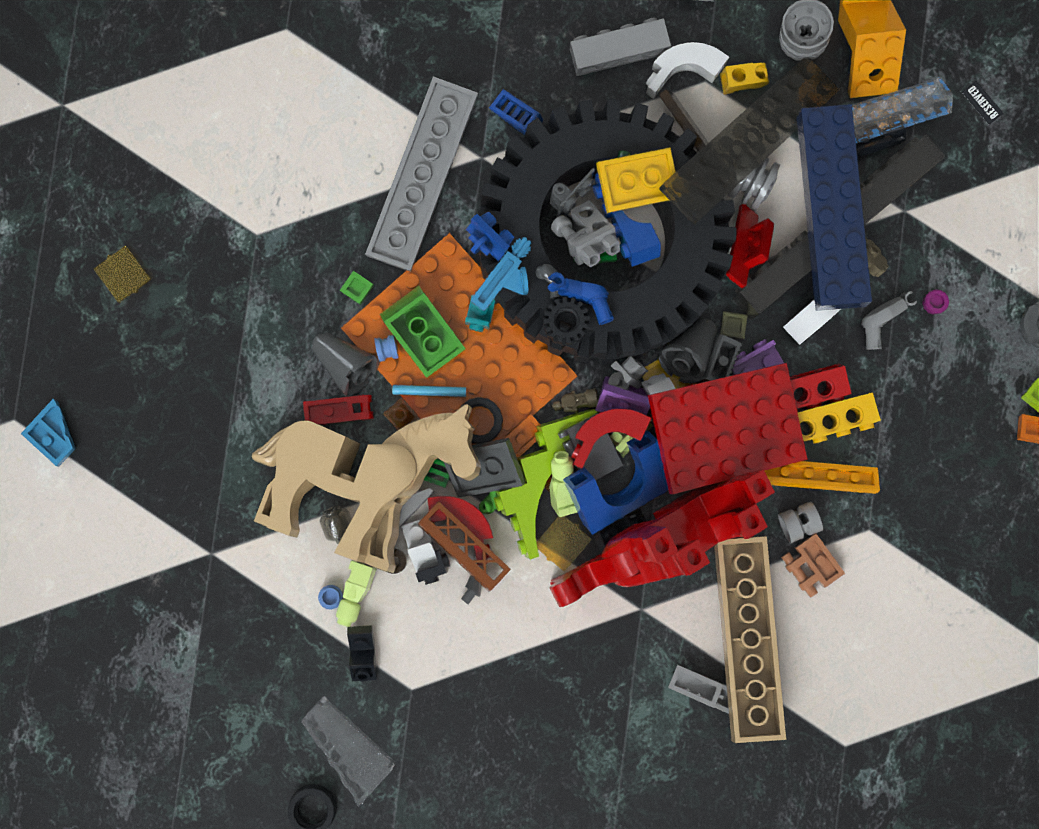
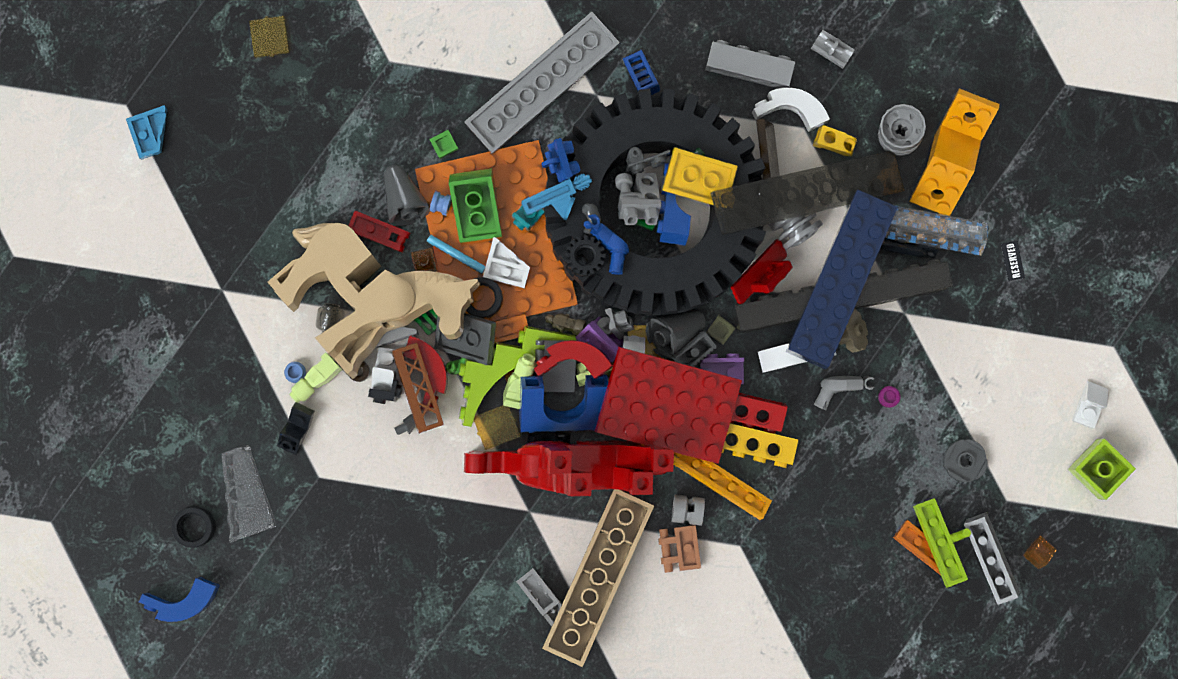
camera: 25 degrees right, 0 degrees up
(486, 376) = (505, 266): none -> white wing

